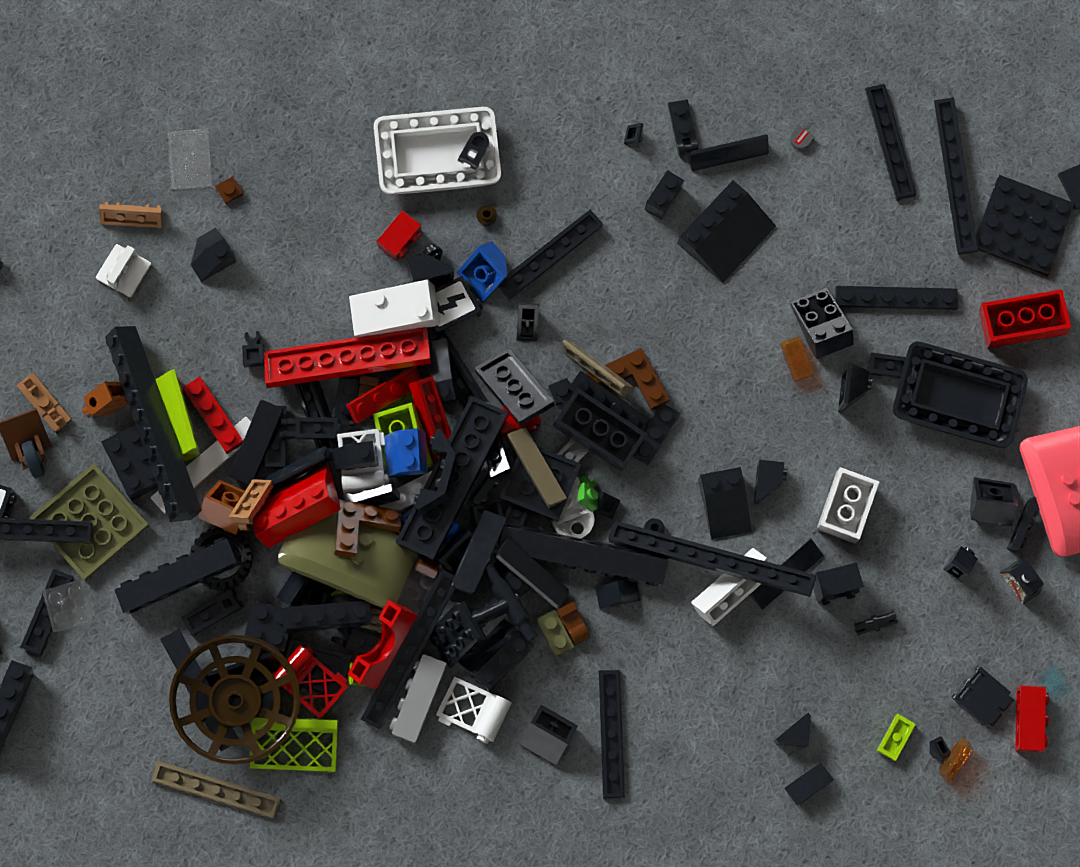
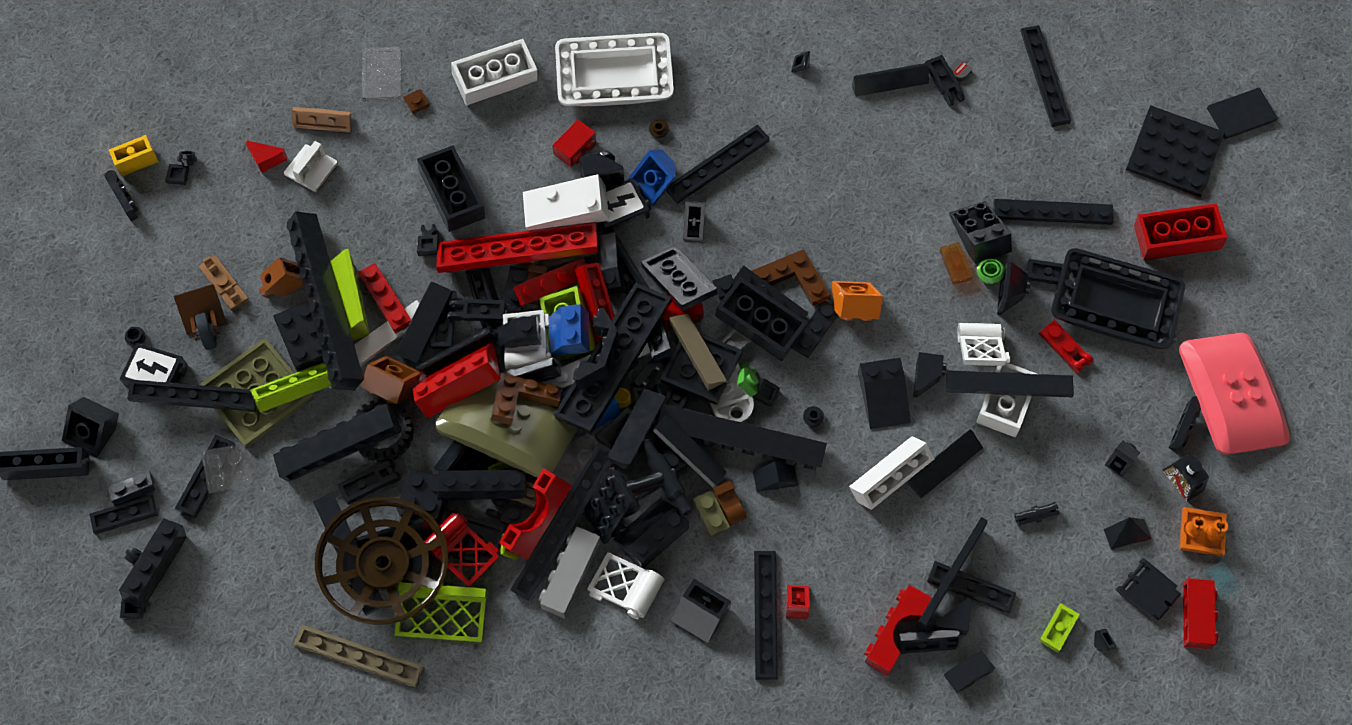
camera: 10 degrees right, 10 degrees down
(75, 259) = (266, 155): none -> red slope
(126, 517) = (291, 387): none -> lime slope
(211, 255) = (395, 157): black slope -> none
(250, 503) = (412, 371): medium nougat plate -> none
(273, 292) = (451, 188): none -> black brick
(310, 156) = (494, 71): none -> white brick
(427, 567) = (584, 441): reddish brown plate -> none
(464, 516) = (623, 398): none -> yellow plate
(478, 144) = (651, 61): black plate -> none
(597, 368) = (759, 264): dark tan slope -> none
(642, 719) = (797, 602): none -> red slope
(664, 194) = (828, 113): black brick -> none
(682, 126) = (847, 56): black plate -> none
(695, 403) = (856, 300): none -> orange slope
(712, 558) = (872, 442): black plate -> none
(726, 231) = (887, 147): black slope -> none
(752, 721) = (884, 651): none -> red arch
(769, 756) = (928, 641): none -> black hinge
(785, 150) = (945, 79): none -> black hinge
(792, 689) = (951, 575): none -> black tile
(811, 699) = (974, 588): none -> black tile
(821, 438) = (981, 336): none -> white piece
(828, 364) = (990, 271): none -> bright green cone
(837, 583) = (997, 471): black container -> none
(849, 493) = (1009, 383): none -> black tile
(906, 445) = (1066, 346): none -> red plate
(952, 765) = (1125, 647): clear orange plate -> none
(955, 176) = (1109, 106): black plate -> none
(964, 639) = (1127, 532): none -> black slope
(993, 502) = (1154, 401): black slope -> none
(1037, 635) = (1203, 531): none -> orange plate

